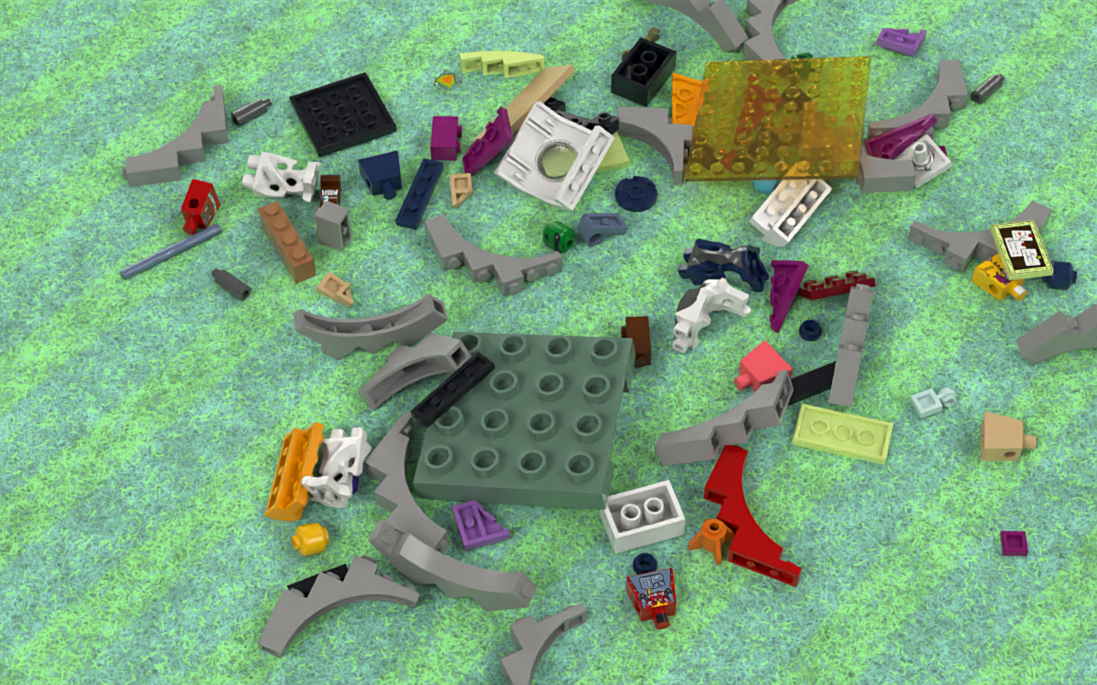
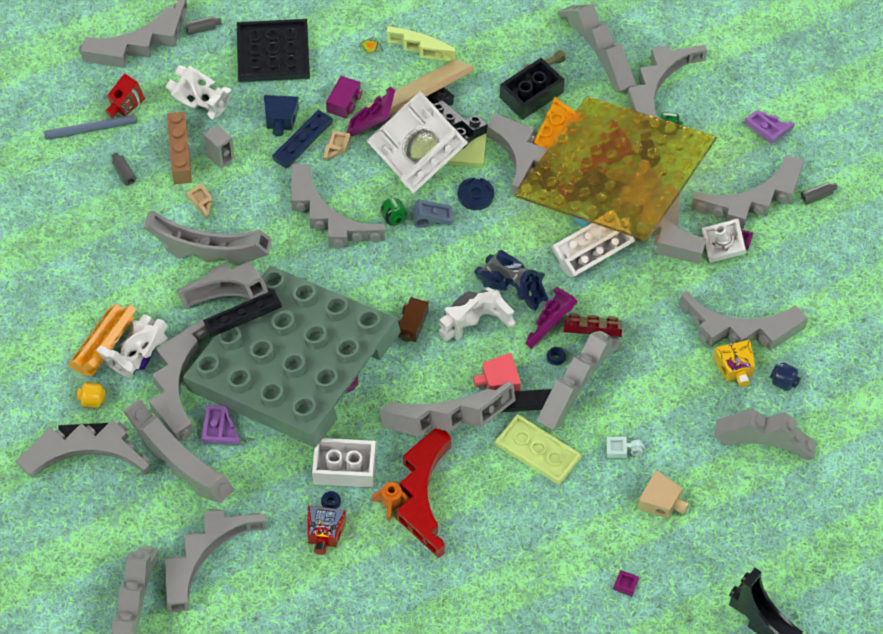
camera: 20 degrees right, 5 degrees up
(330, 189) = (232, 117): reddish brown leg -> none
(894, 142) = (704, 217): magenta wing -> none
(1021, 250) = (760, 345): tile -> none

